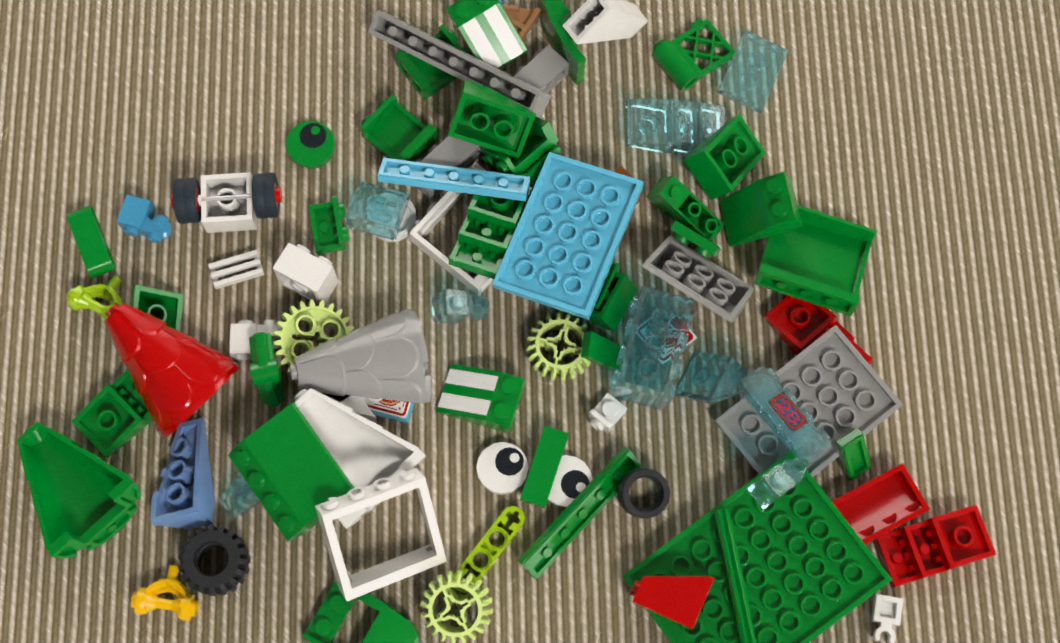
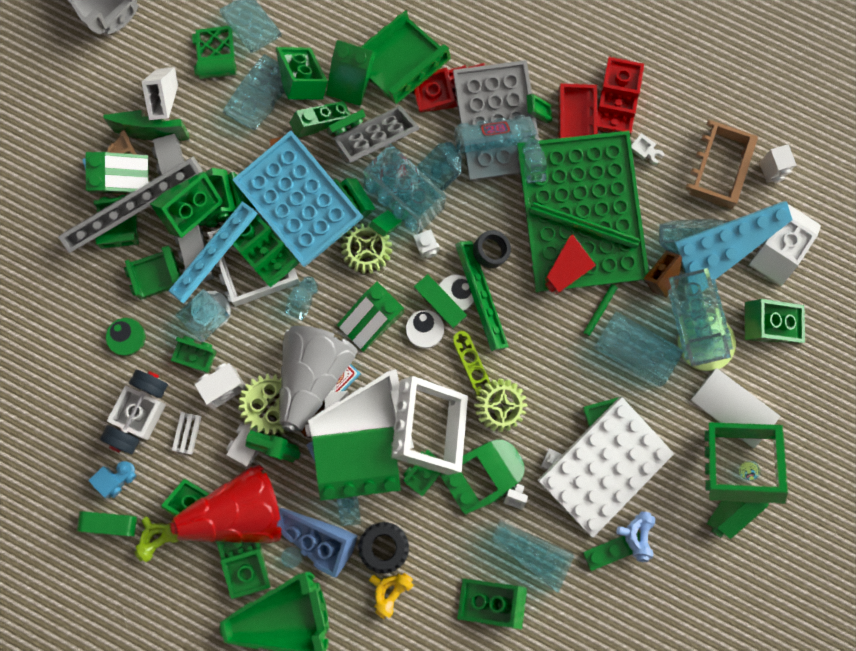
camera: 60 degrees left, 5 degrees up
(152, 462) = (291, 557): none -> clear light blue tile
(316, 560) = (421, 478): none -> green bracket

